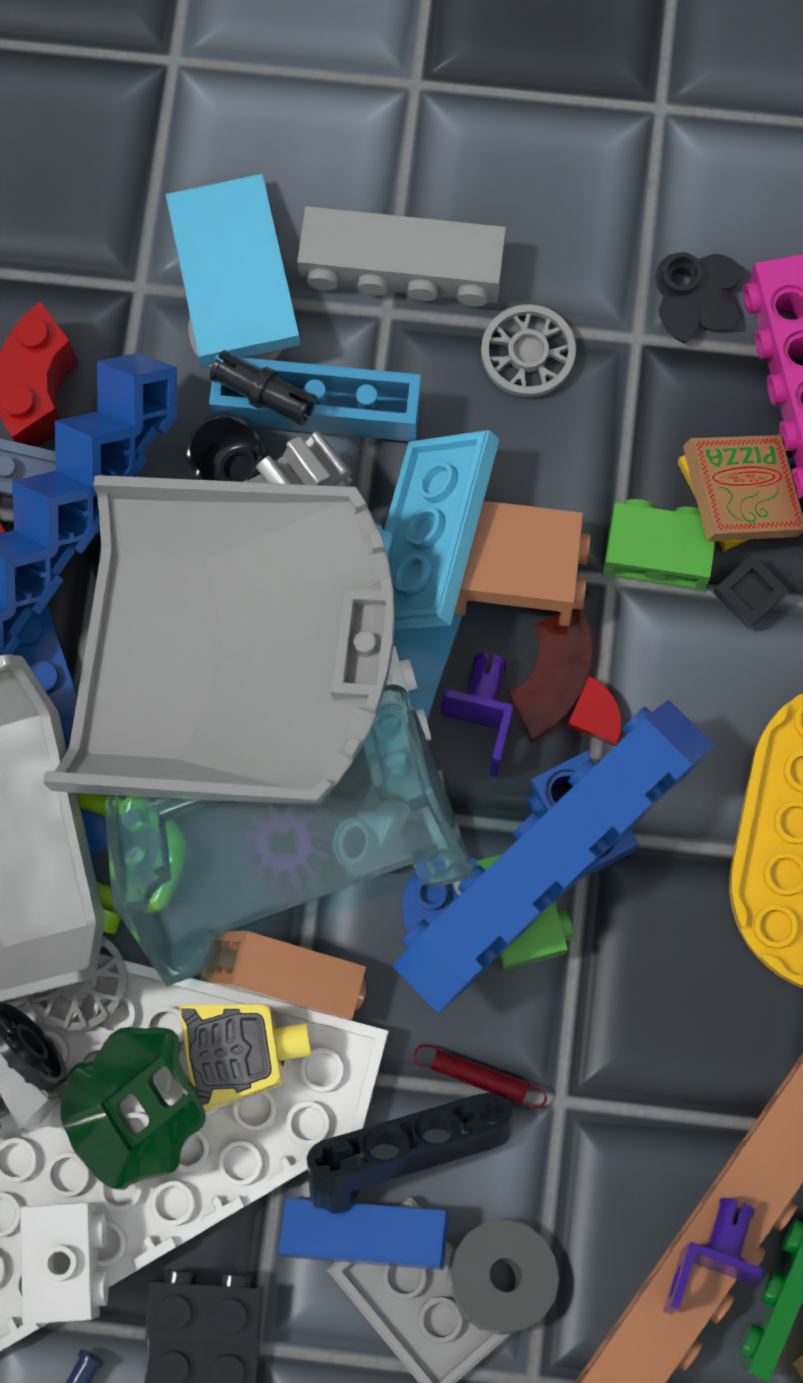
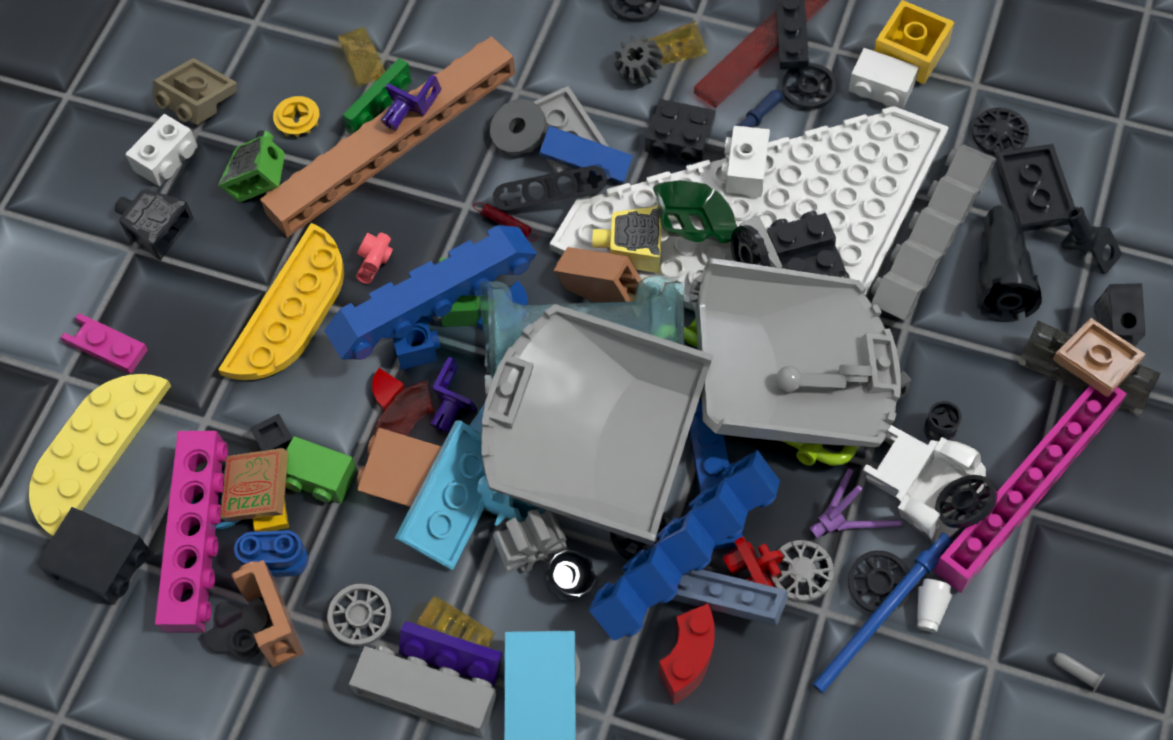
camera: 170 degrees left, 15 degrees down
(263, 387) = (535, 588): black pin -> none
(347, 401) = (503, 596): dark azure brick -> none
(378, 310) = (450, 652): none -> dark purple plate
(402, 341) = (449, 612): none -> clear yellow slope
(644, 307) = (281, 640): none -> nougat panel
(683, 399) = (279, 549): none -> blue brick
(688, 957) = (375, 252): none -> coral plate

